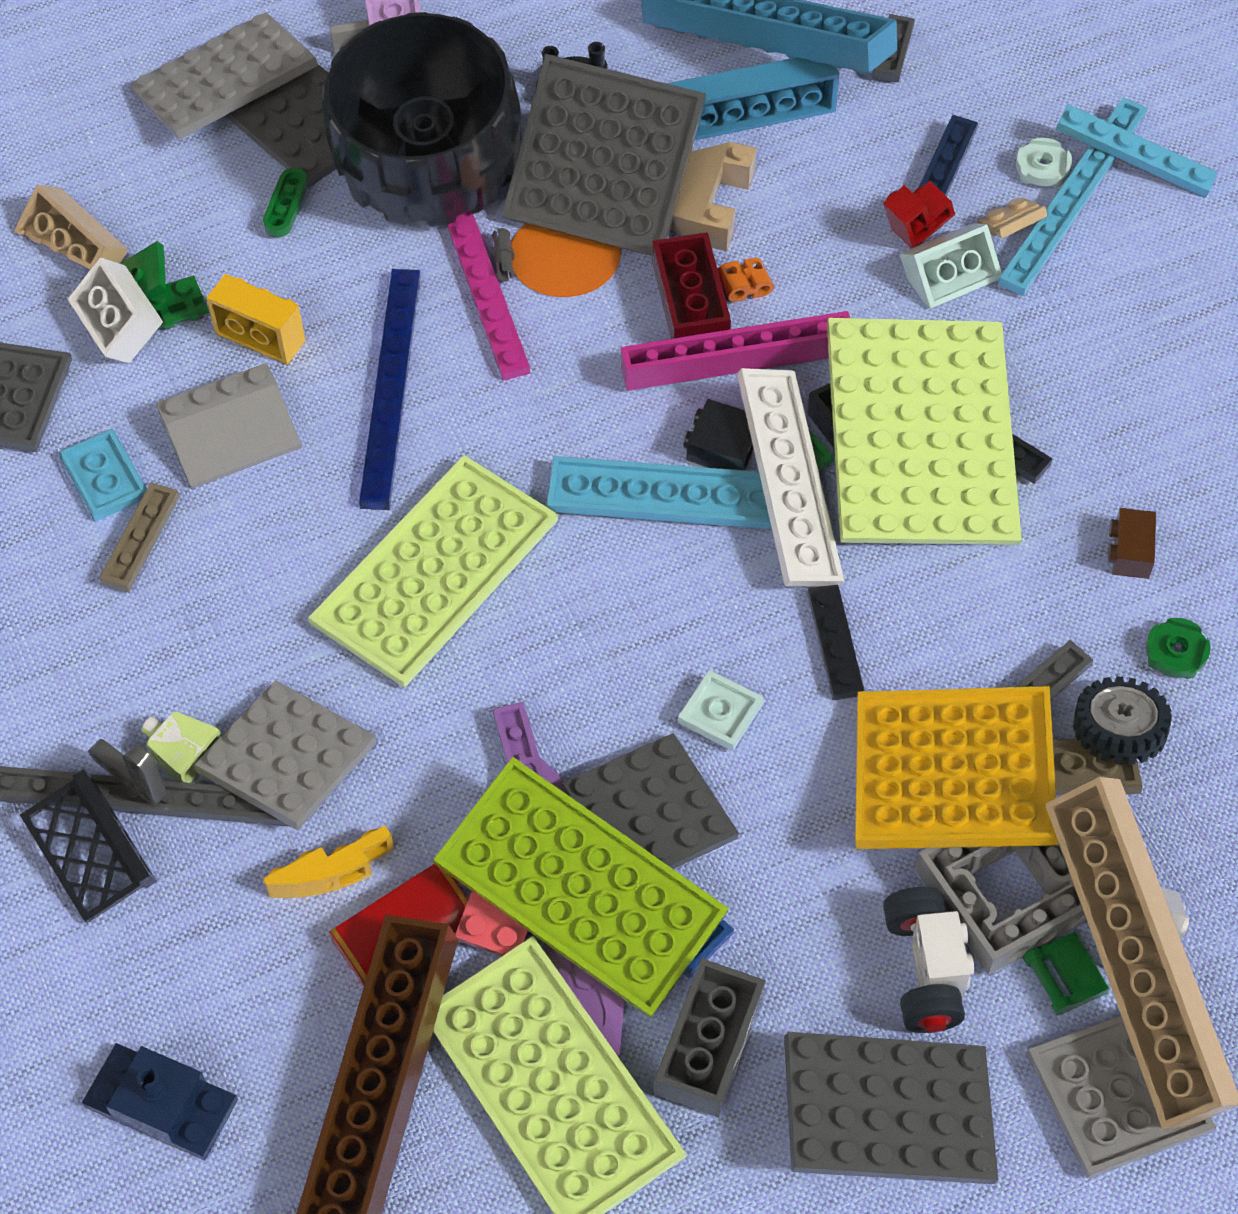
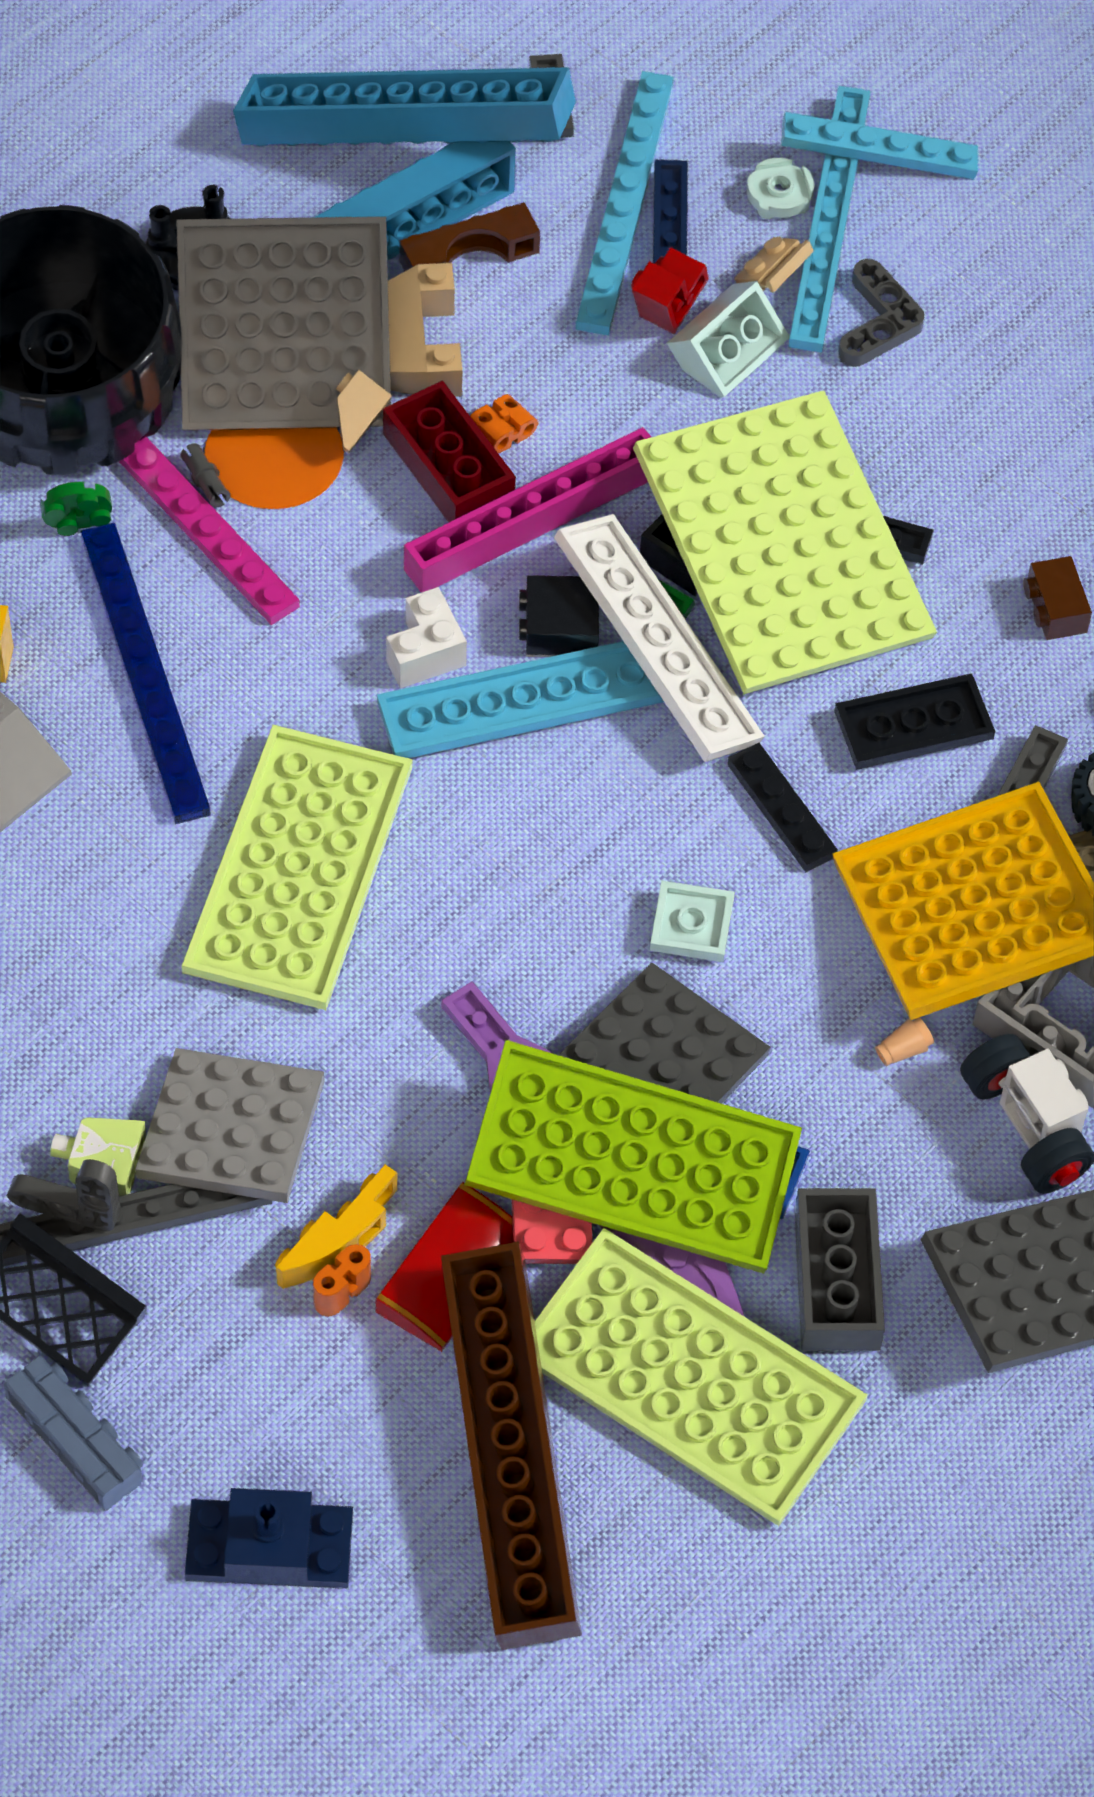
camera: 25 degrees left, 0 degrees up
(52, 957) = (73, 1432): none -> sand blue brick
(312, 906) = (345, 1278): none -> orange piece
(392, 250) = (76, 507): none -> green plate
(609, 431) = (430, 643): none -> white brick
(635, 235) = (358, 406): none -> tan slope
(810, 137) = (504, 232): none -> reddish brown arch
(850, 865) = (905, 1042): none -> light nougat cone
(916, 142) = (625, 204): none -> medium azure plate
(972, 606) = (914, 721): none -> black plate
(1088, 287) = (890, 316): none -> dark grey beam

